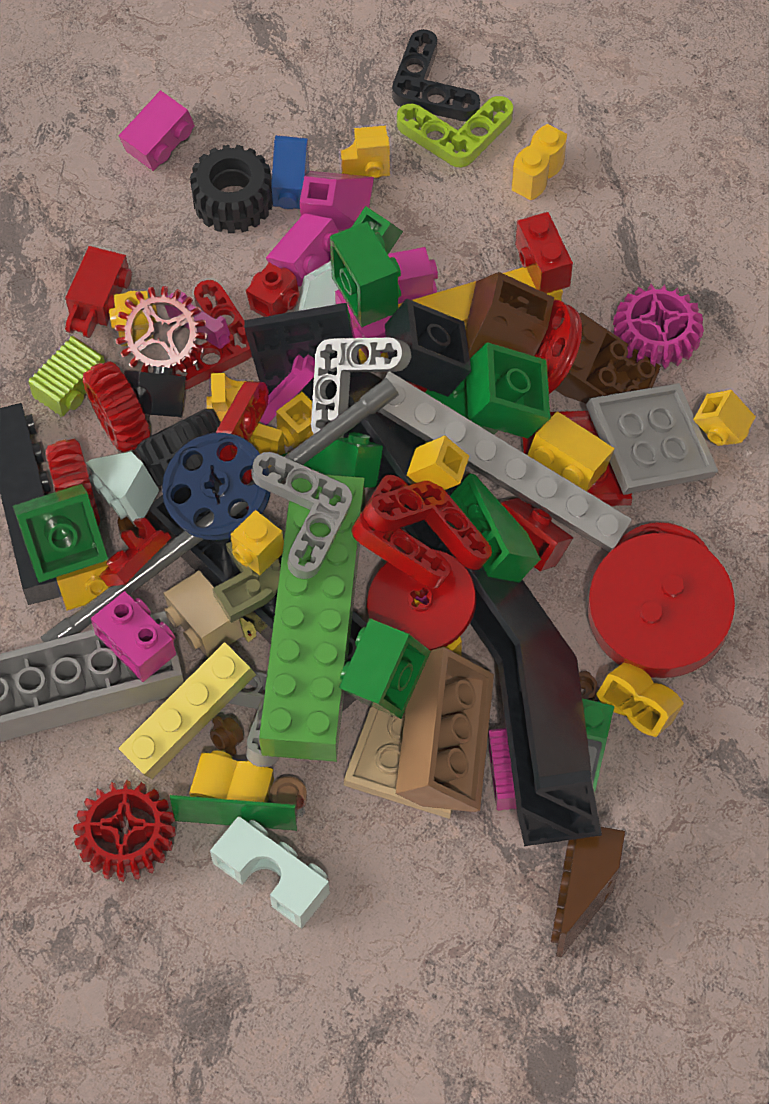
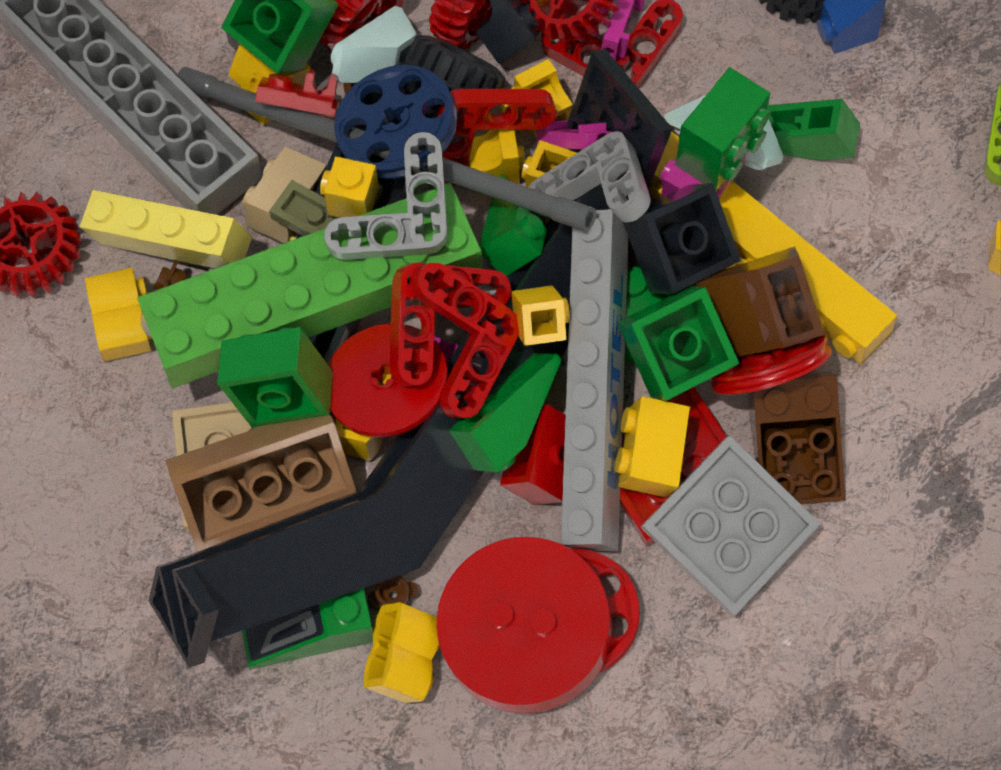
camera: 65 degrees right, 5 degrees up
(134, 635) = (205, 138): dark pink brick -> none
(226, 811) = (116, 381): green piece -> none
(248, 849) = (42, 425): light aqua arch -> none
(273, 291) = (695, 69): red brick -> none
(285, 791) = (138, 372): medium nougat tile -> none
(304, 246) = (774, 68): dark pink brick -> none
(336, 196) = (856, 67): dark pink slope -> none
(368, 153) = (934, 76): yellow brick -> none
(416, 273) = (784, 187): dark pink brick -> none
(543, 253) = (888, 301): red brick -> none
(587, 886) = (156, 690): reddish brown slope -> none
(672, 317) = (905, 498): dark pink gear -> none
(724, 418) = (799, 592): yellow brick -> none

